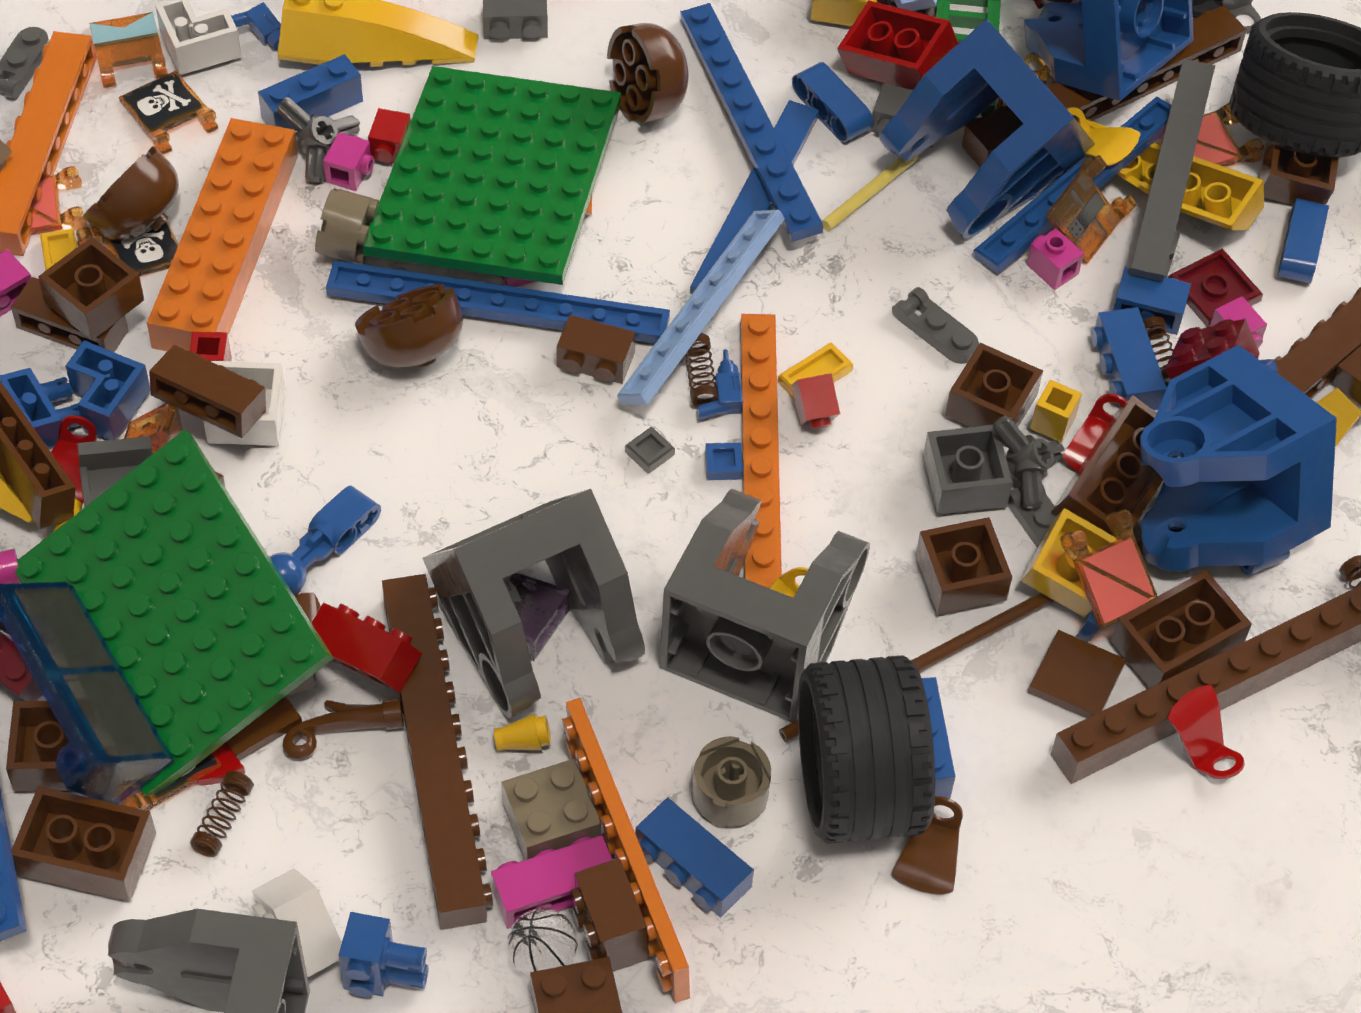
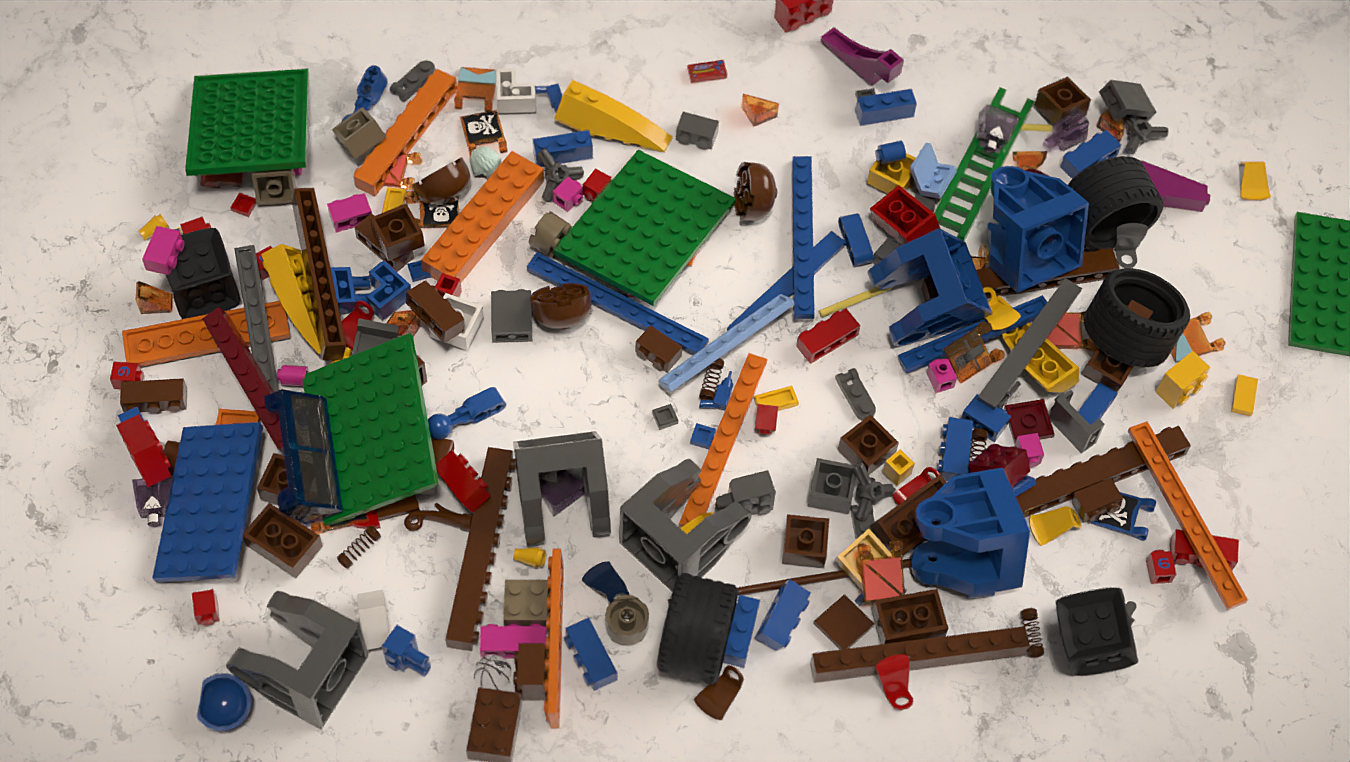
camera: 20 degrees right, 5 degrees up
(140, 348) = (416, 272): none -> blue tile
(190, 149) = (484, 161): none -> light aqua hair
(334, 369) = (511, 316): none -> dark grey panel
(665, 732) = (605, 580): none -> dark blue piece
(853, 508) = (751, 491): none -> dark grey hinge
(854, 252) = (828, 335): none -> red brick
(979, 692) = (783, 615): none -> blue brick
(1288, 266) = (1073, 425): none -> dark grey panel

